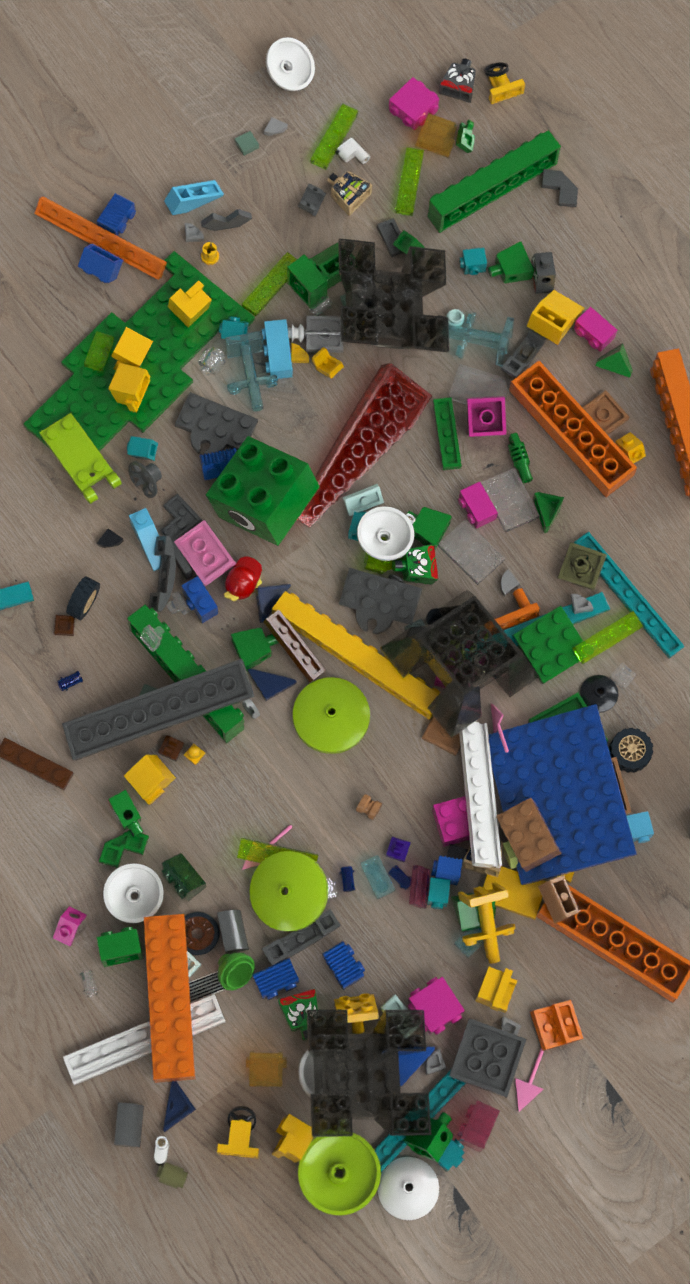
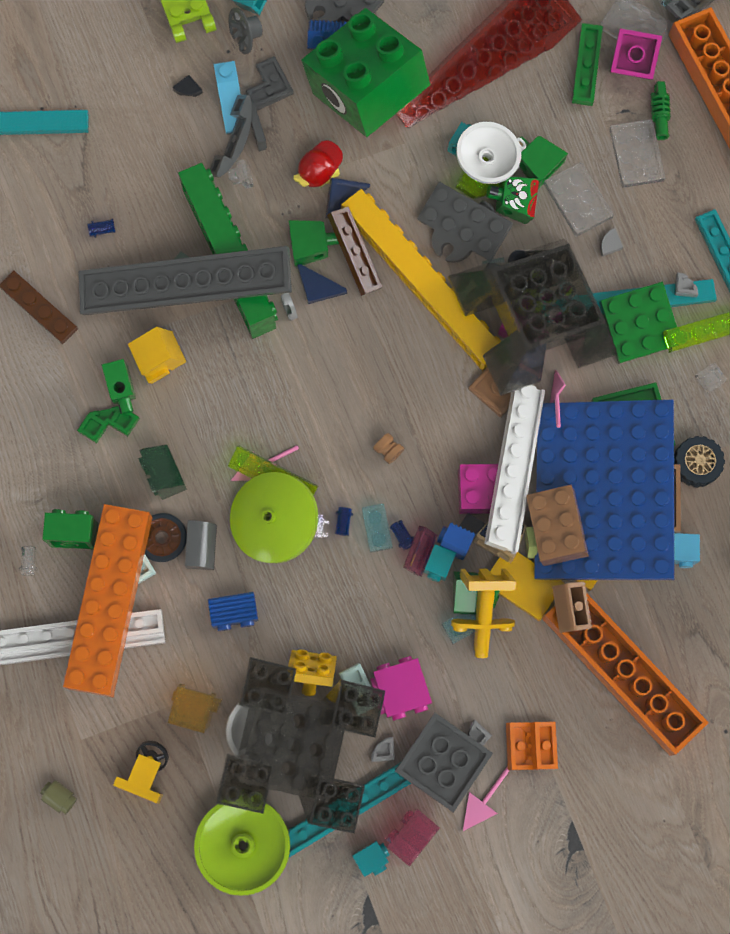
camera: 15 degrees right, 5 degrees up
(64, 625) = (113, 167): reddish brown tile -> none
(68, 926) = (23, 492): dark pink bracket -> none
(83, 598) = (138, 141): black wheel -> none
(129, 1125) = (26, 728): dark grey brick -> none
(130, 880) = (95, 462): white dish -> none
(152, 637) = (198, 198): clear tile -> none
(161, 1150) = (54, 766): white piece -> none
(171, 748) = (190, 328): reddish brown tile -> none
(177, 1106) = (87, 722): dark blue tile -> none
(194, 754) = (214, 341): yellow piece -> none
(199, 599) = (265, 175): blue brick -> none
(204, 987) = (160, 597): sticker -> none
(205, 553) = (285, 126): bright pink plate -> none
(235, 970) = (190, 589): bright green piece -> none
(294, 1139) = (202, 795): yellow plate -> none
(295, 1010) = (249, 645): torso -> none
(299, 940) = (271, 575): dark grey slope -> none
(331, 732) = (372, 356): lime dish -> none
(343, 965) = (312, 616): blue brick -> none
(363, 499) = (475, 112): light aqua plate -> none
(398, 849) = (408, 503): dark purple tile -> none
(404, 1203) = (319, 864): white dish -> none
(410, 1063) = (354, 745): blue tile -> none
(432, 1145) = (357, 845): green torso -> none
(478, 505) = (599, 149): dark pink brick -> none
(496, 989) = (475, 688): yellow plate -> none
(525, 613) = (621, 280): orange piece -> none
(548, 508) = (677, 172): green slope -> none
(577, 555) = (695, 232): olive plate -> none
(603, 701) = (669, 389): black dish -> none

